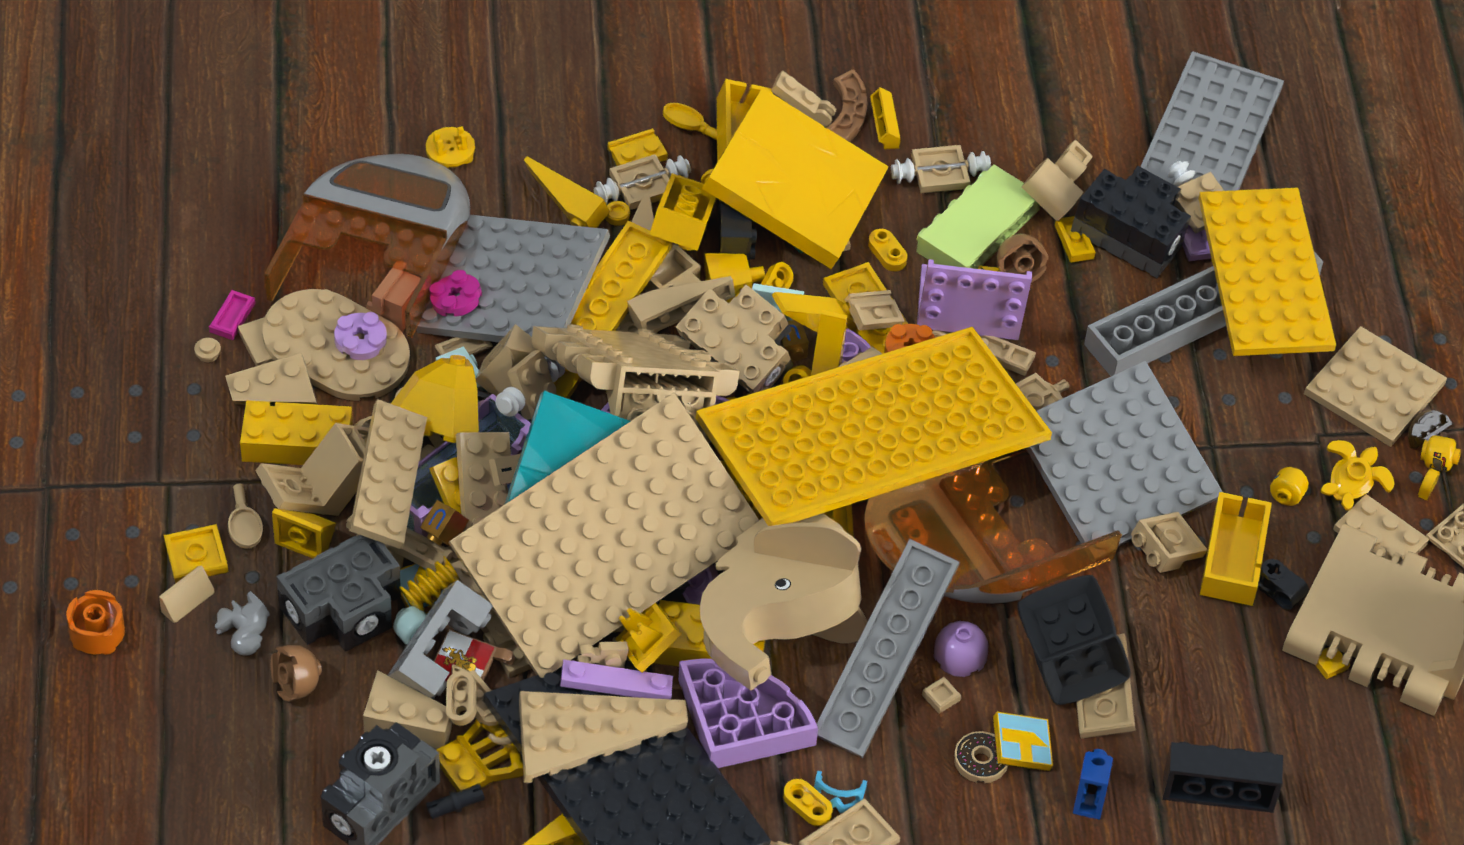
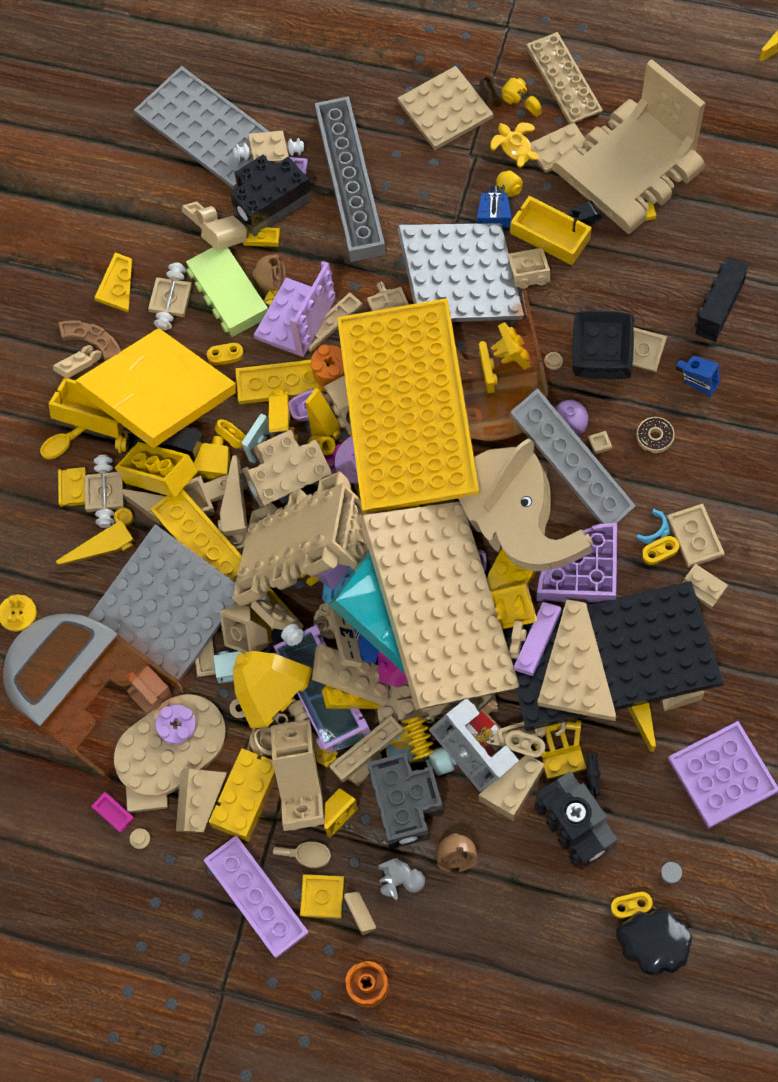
camera: 60 degrees left, 15 degrees up
(172, 484) = (256, 897): none -> lavender plate
(388, 474) = (327, 736): tan plate -> none
(443, 293) = (173, 653): dark pink plate -> none
(443, 523) = (374, 712): pearl gold brick -> none
(874, 310) = (286, 376): tan plate -> none
(891, 137) = (113, 313): yellow piece -> none
(934, 109) = (116, 283): none -> yellow wing
(987, 526) = (487, 366): none -> yellow hinge
(1023, 741) = (653, 406): tile -> none
(1029, 539) = (511, 347): none -> yellow plate
(1242, 475) = (494, 208): none -> blue torso
(1266, 272) = (346, 130): yellow plate -> none

